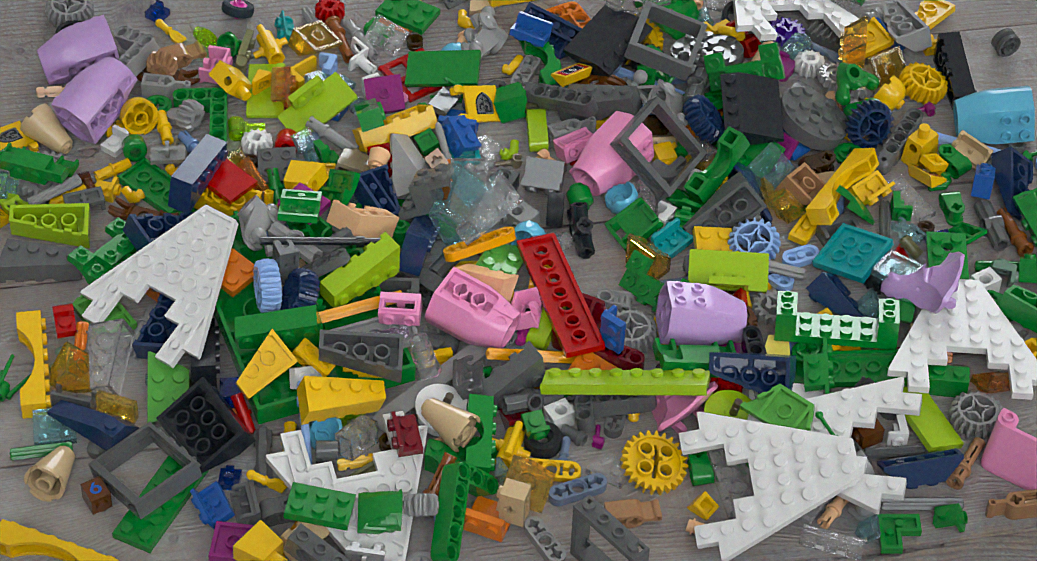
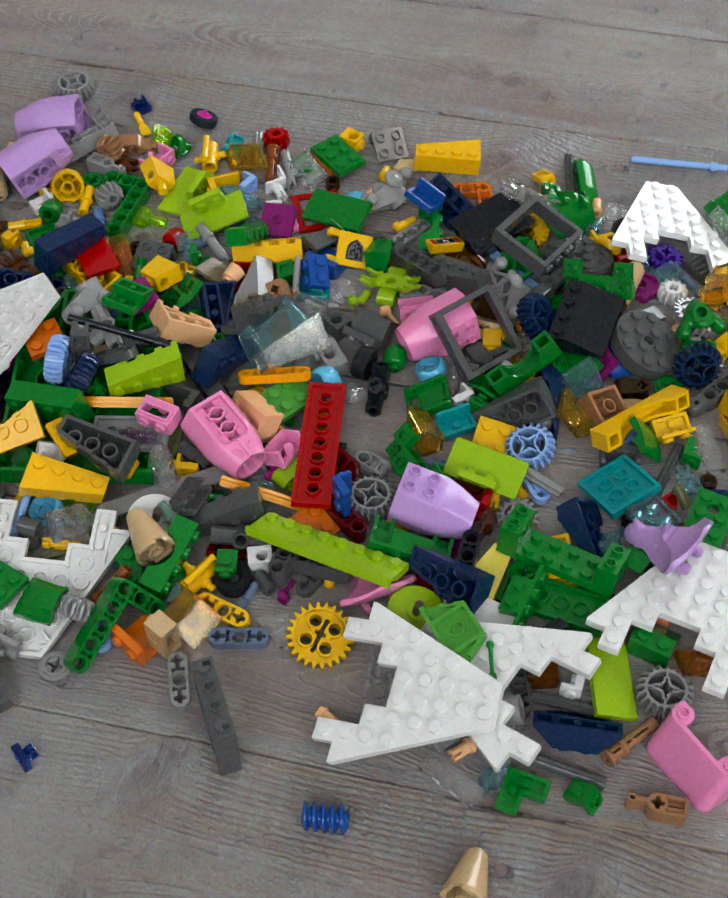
camera: 25 degrees right, 5 degrees up
(244, 52) = (187, 155): olive hinge -> none
(256, 140) = (150, 231): white gear -> none
(261, 81) = (181, 182): yellow slope -> none
(282, 85) = (193, 186): clear orange bracket -> none
(406, 435) = (103, 534): dark red bracket -> none
(459, 399) = (167, 512): none -> sand green pin
(525, 125) = (380, 278): none -> lime piece
(633, 512) = (272, 680): medium nougat piece -> none
(700, 469) = (359, 658): green piece -> none
(703, 506) = (346, 696): yellow slope -> none
(800, 256) = (569, 473): light blue plate -> none
(802, 231) = (583, 451): yellow plate -> none

